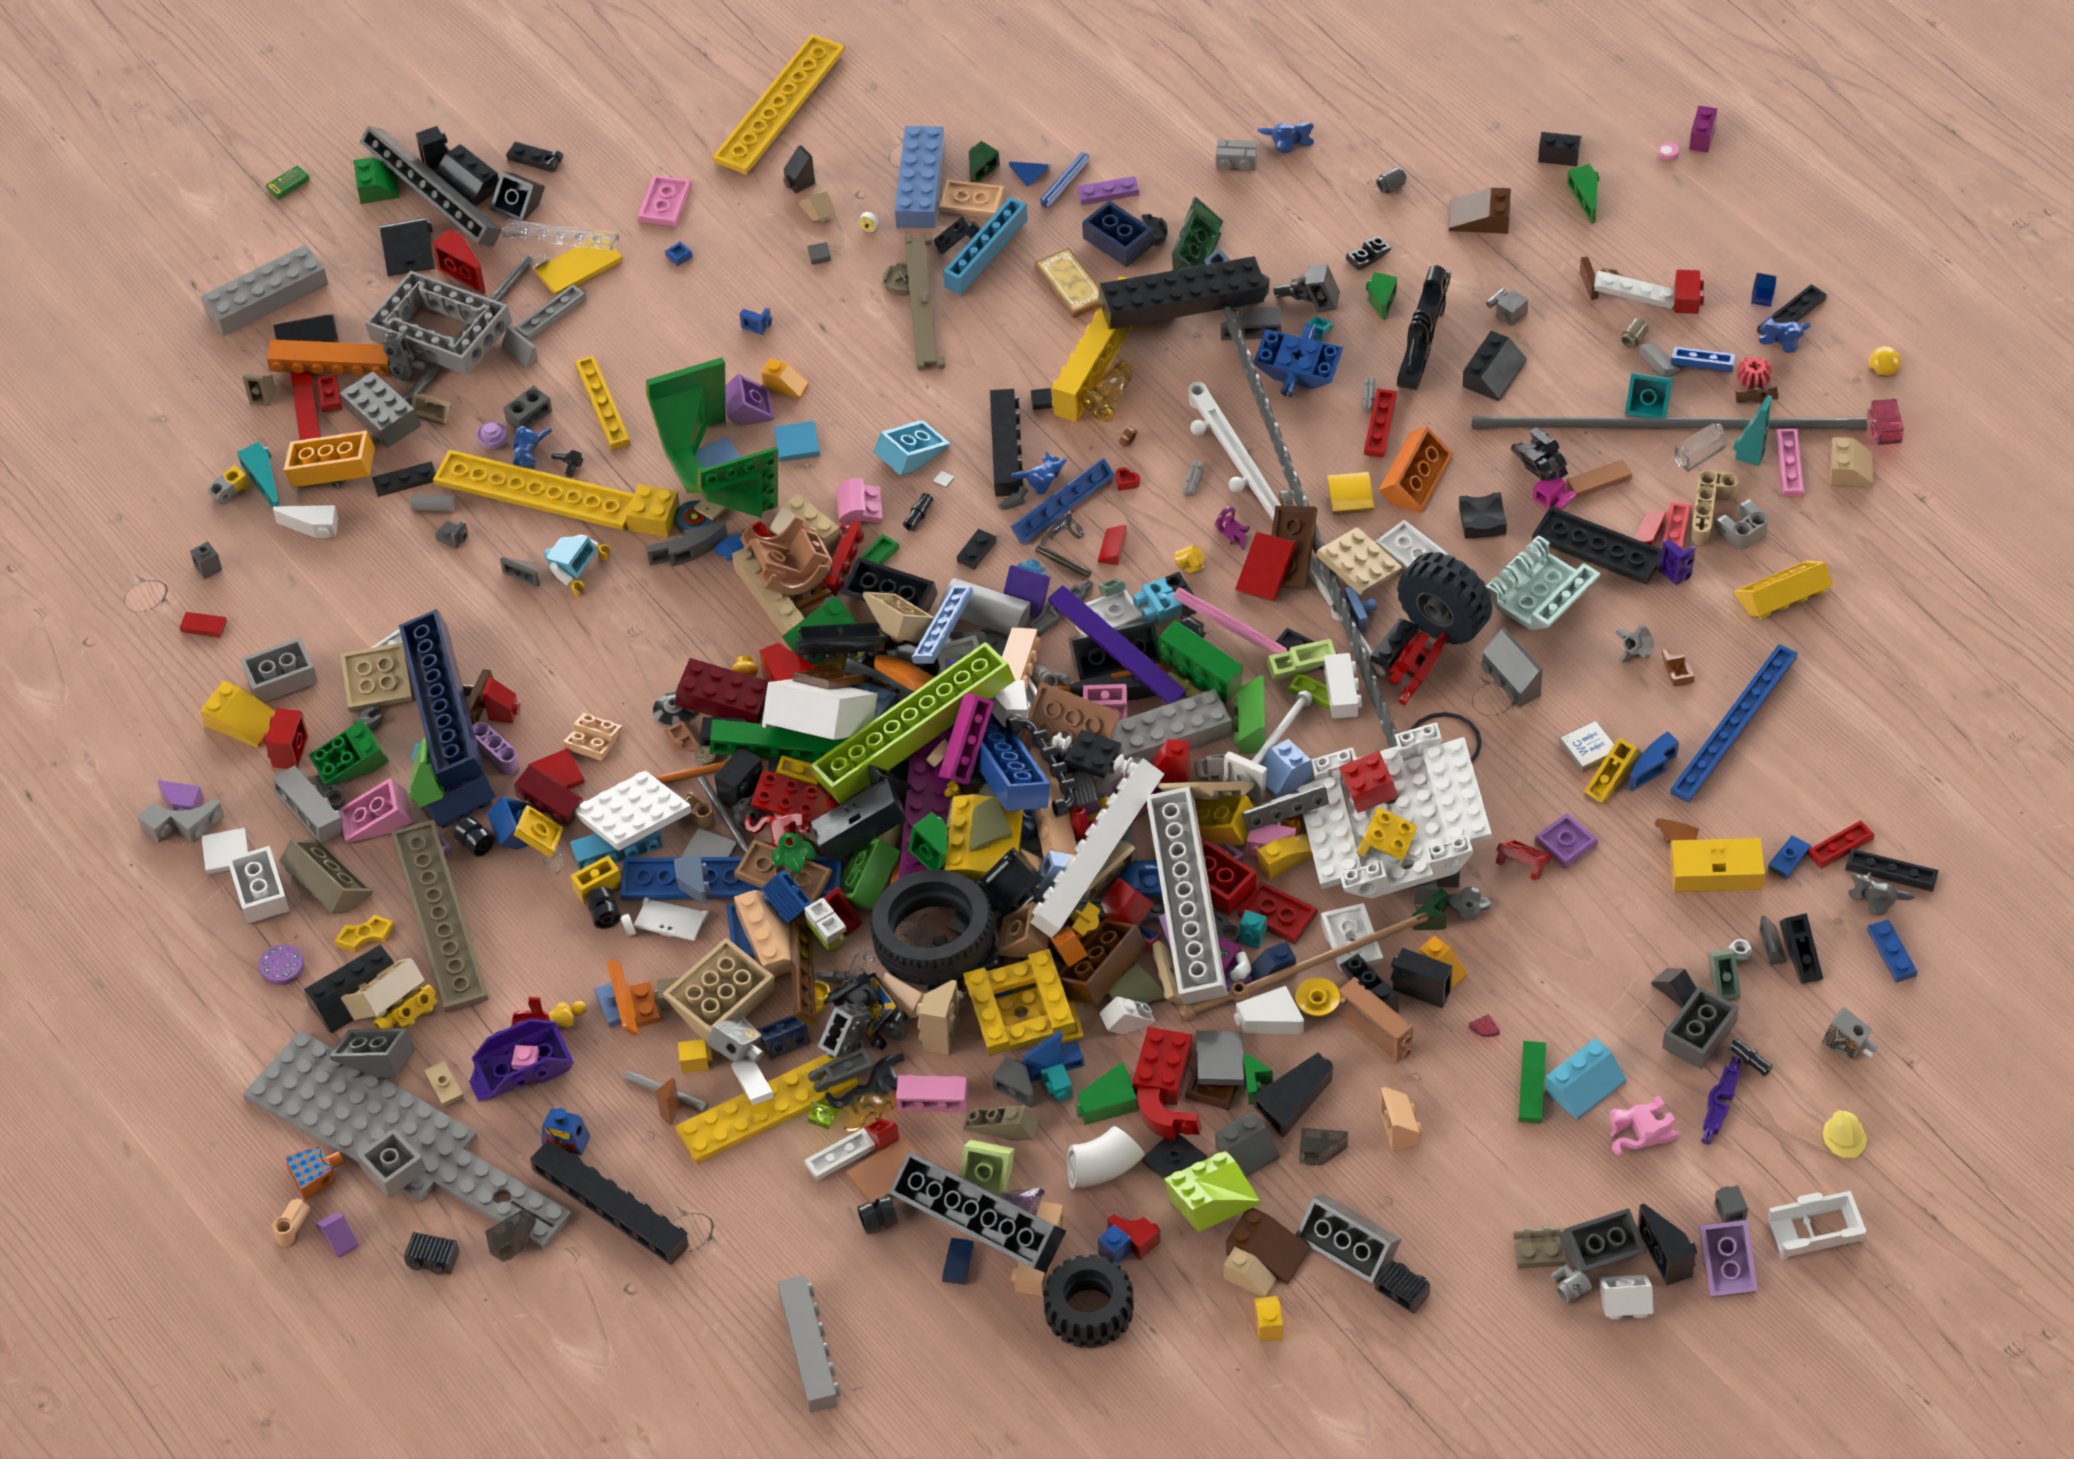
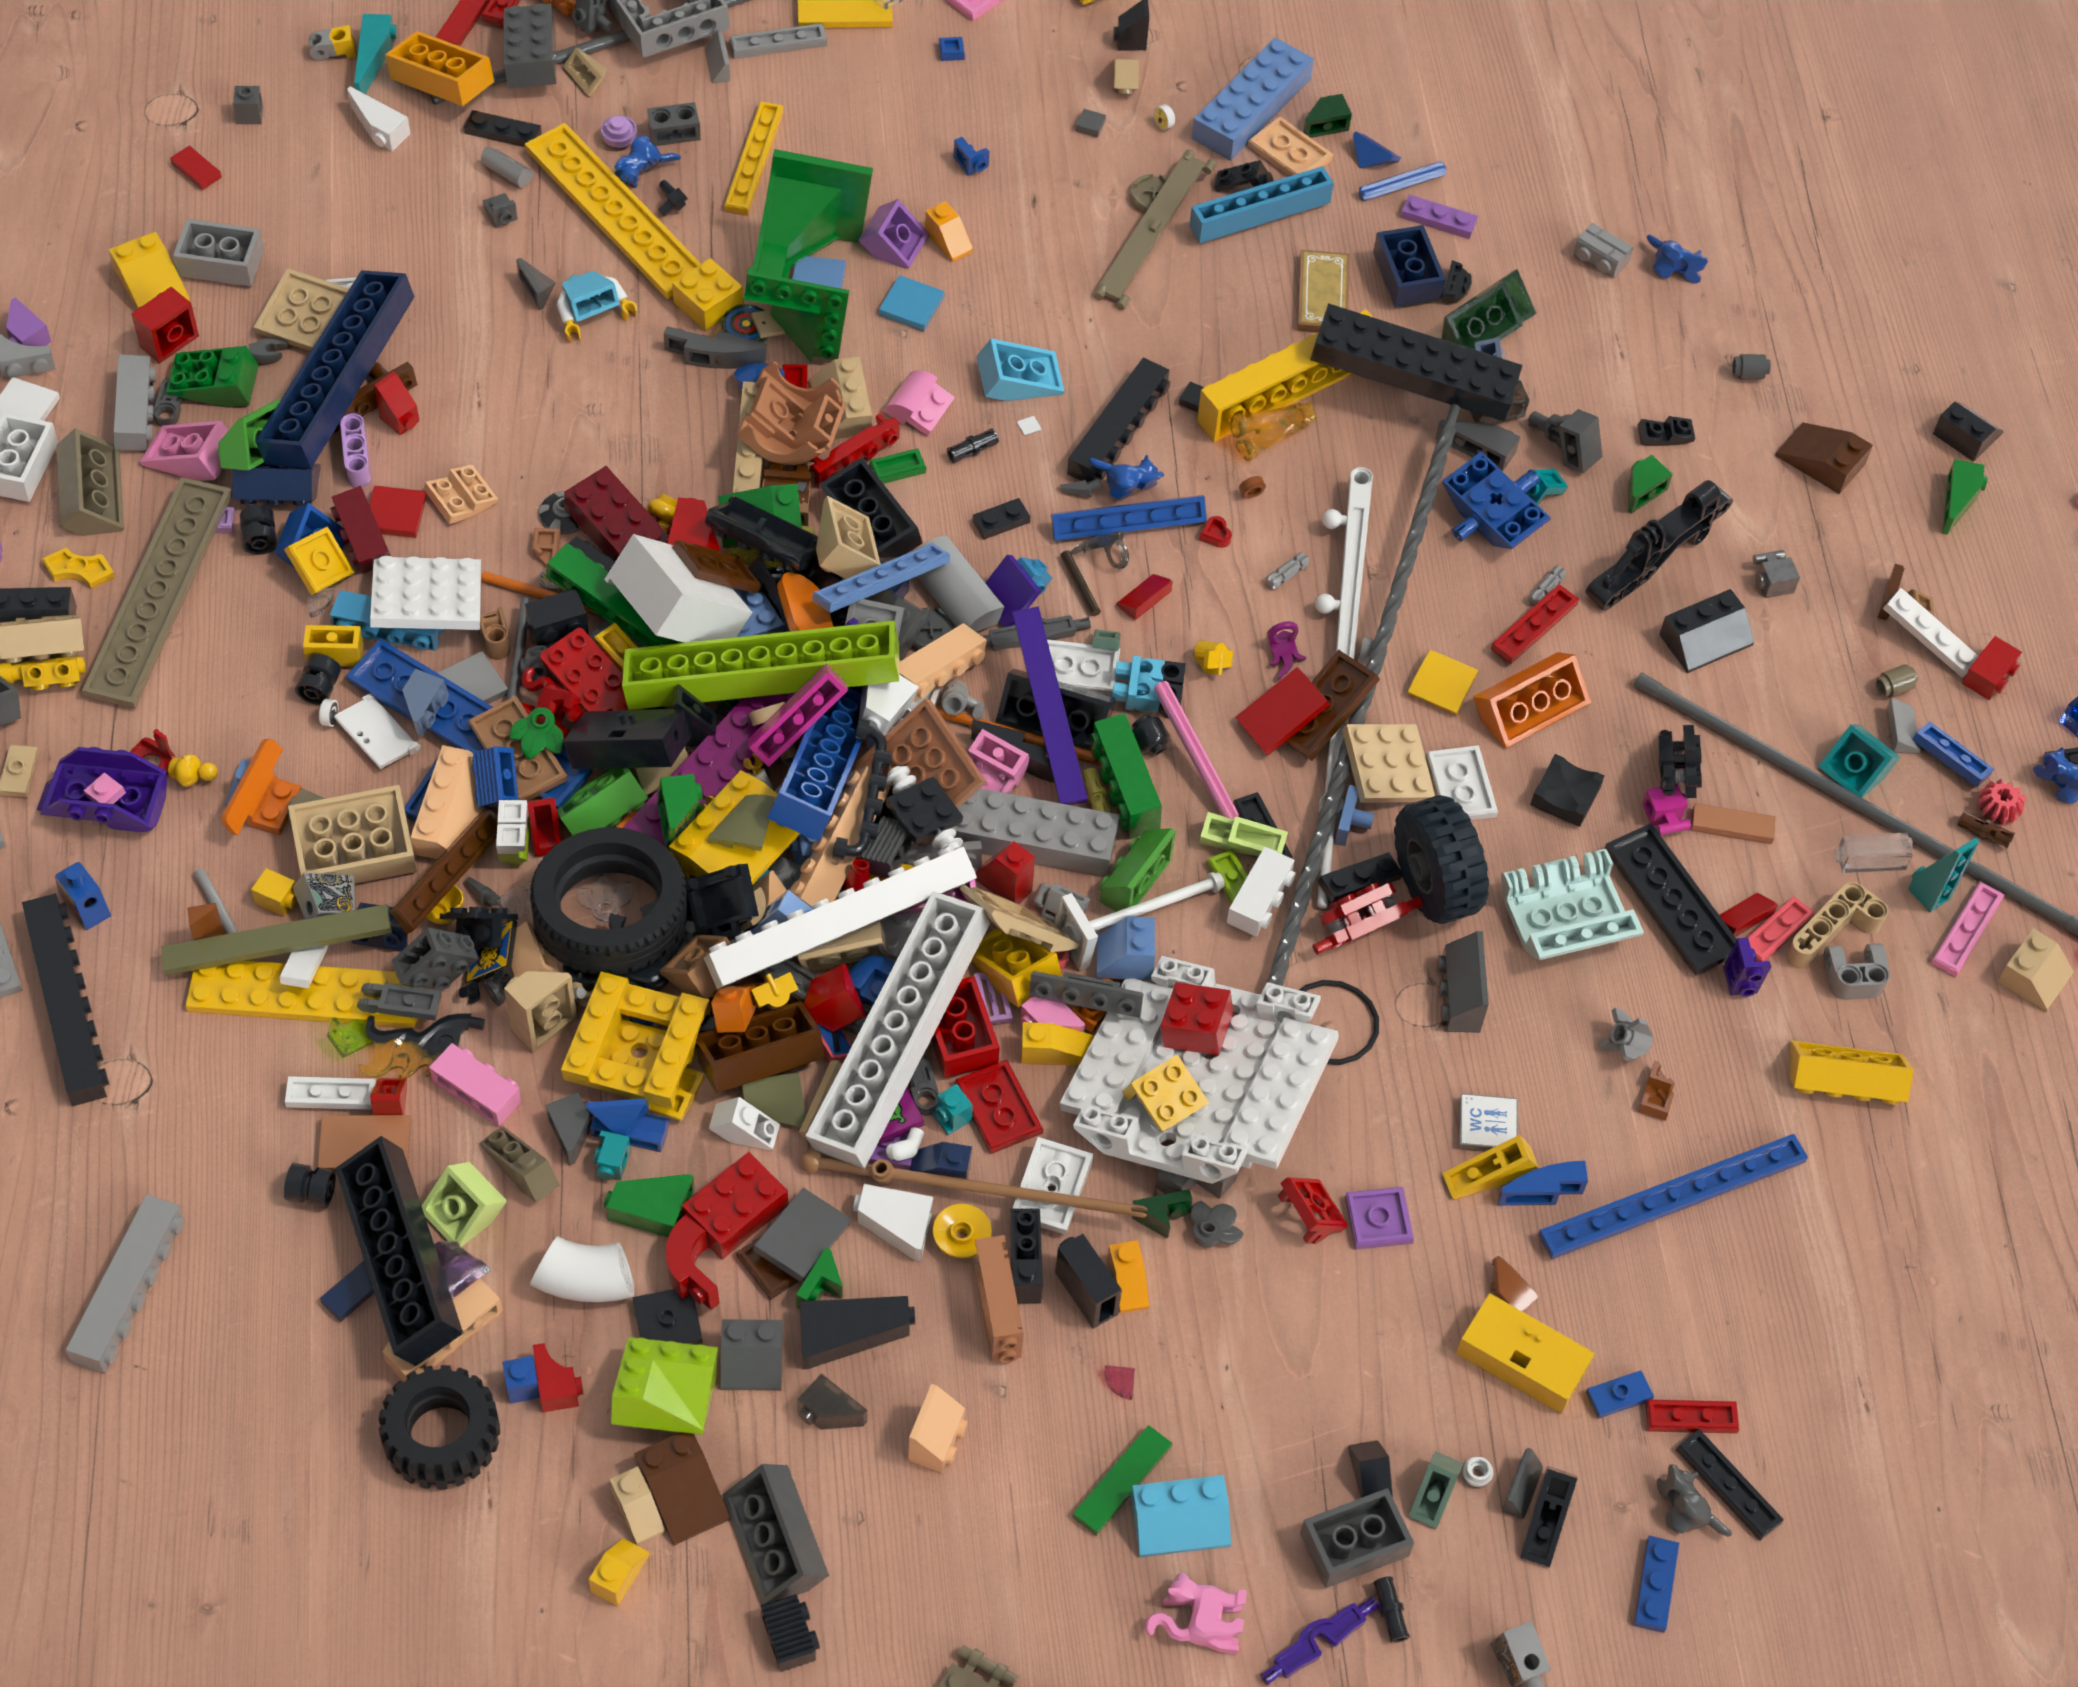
camera: 25 degrees right, 5 degrees up
(725, 1081) = (276, 939): none -> olive tile

